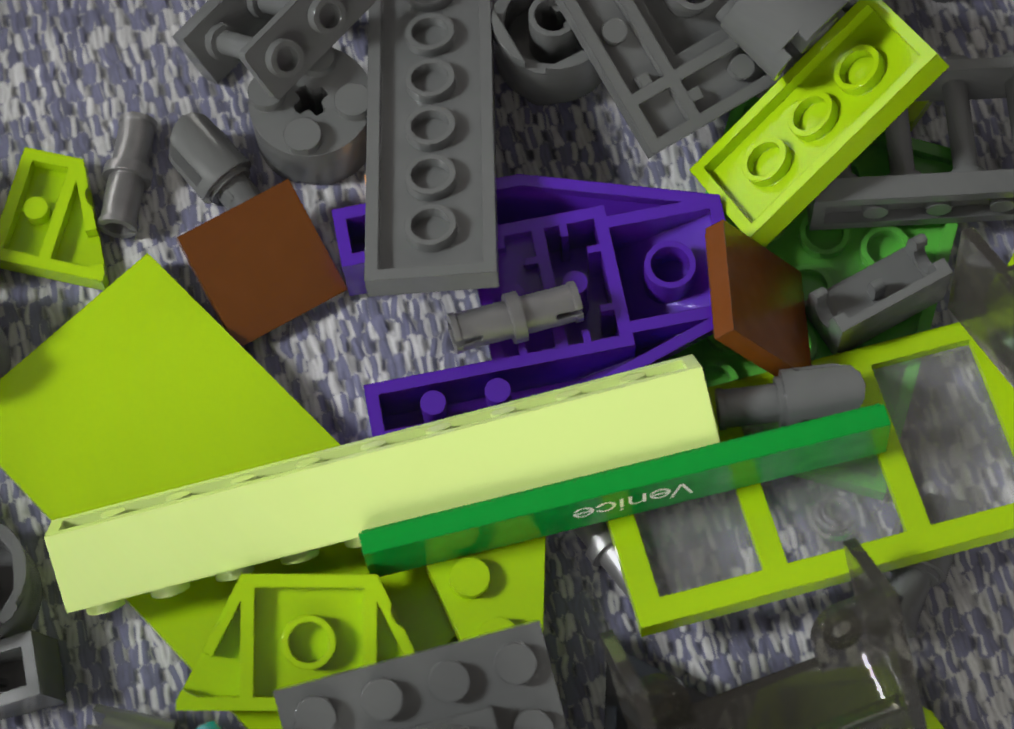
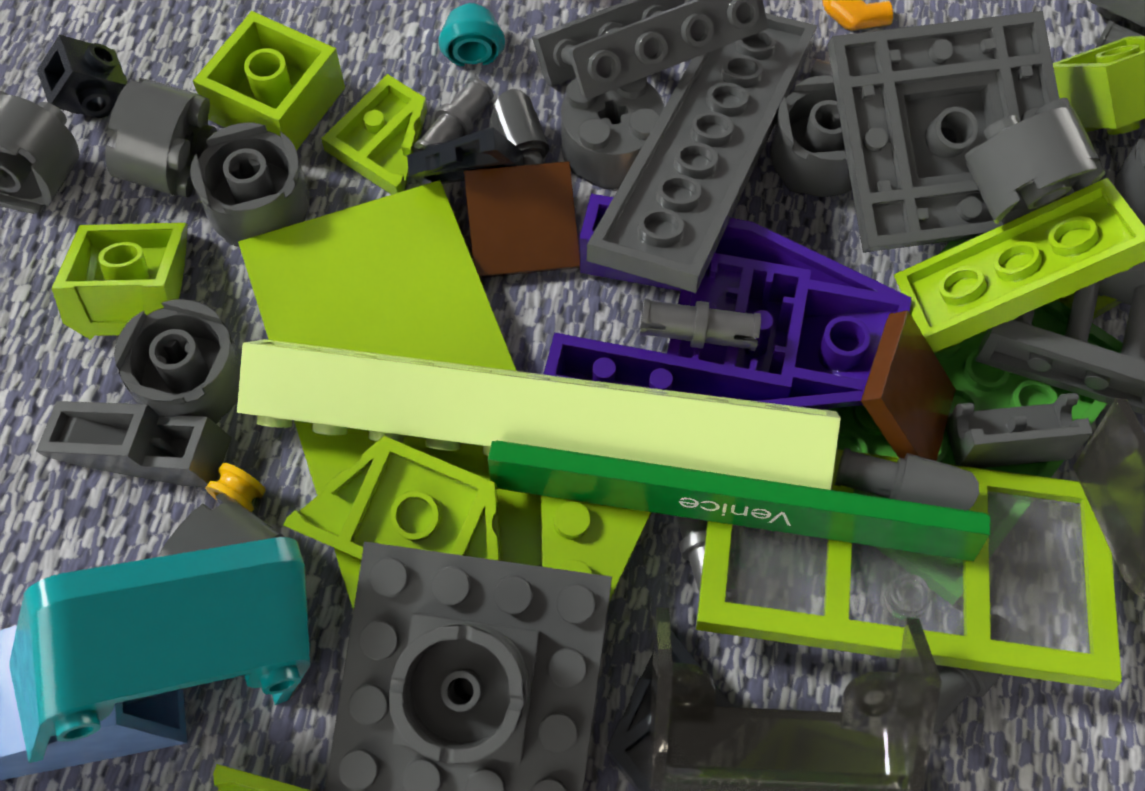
camera: 20 degrees right, 5 degrees down
(90, 688) = (237, 485): none -> yellow bush
(98, 59) = (471, 36): none -> teal cone
(148, 232) = (470, 152): none -> black wing

